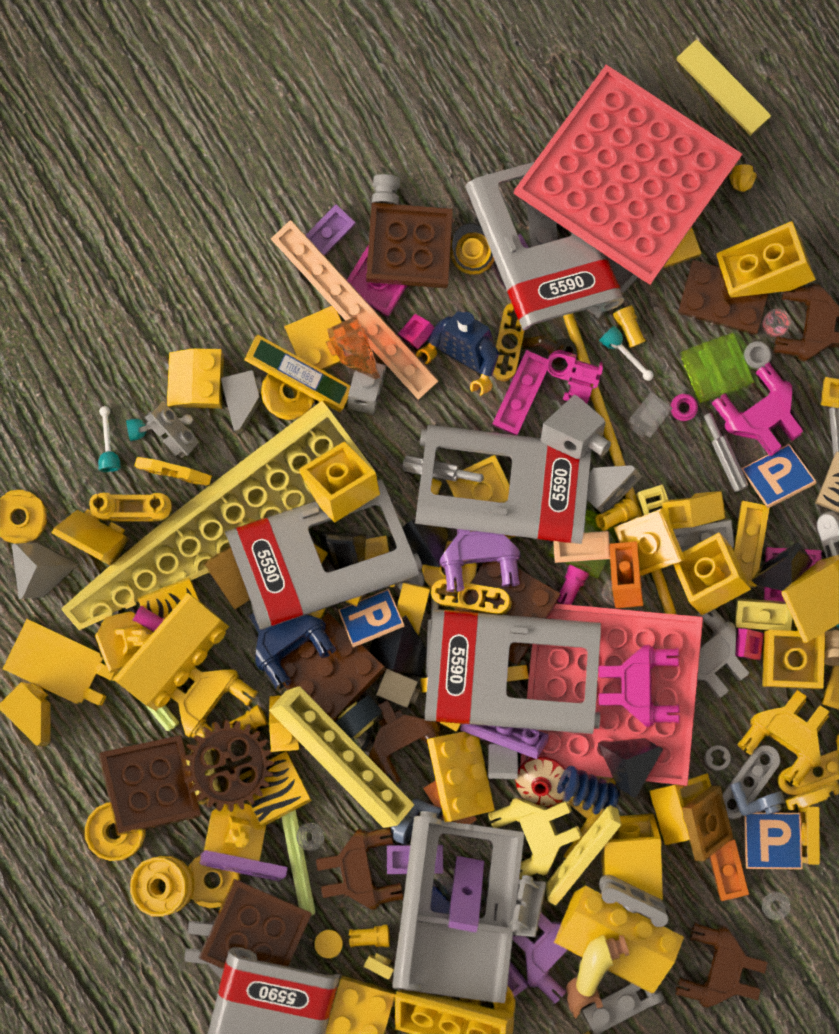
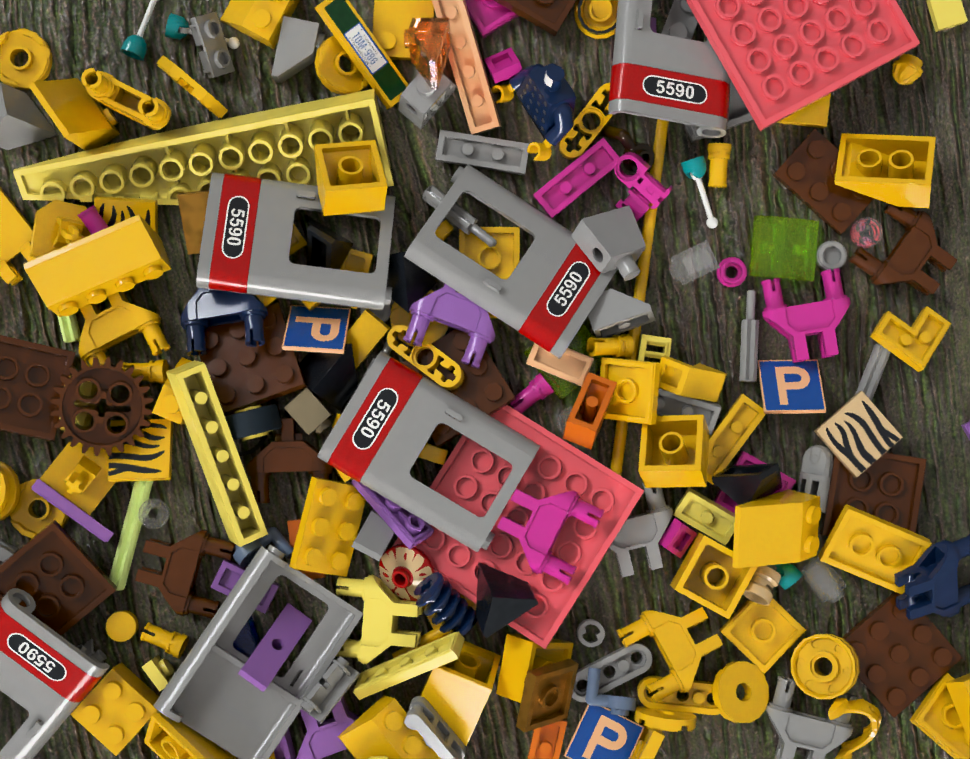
camera: 25 degrees right, 5 degrees up
(434, 409) = (482, 152): none -> light grey plate

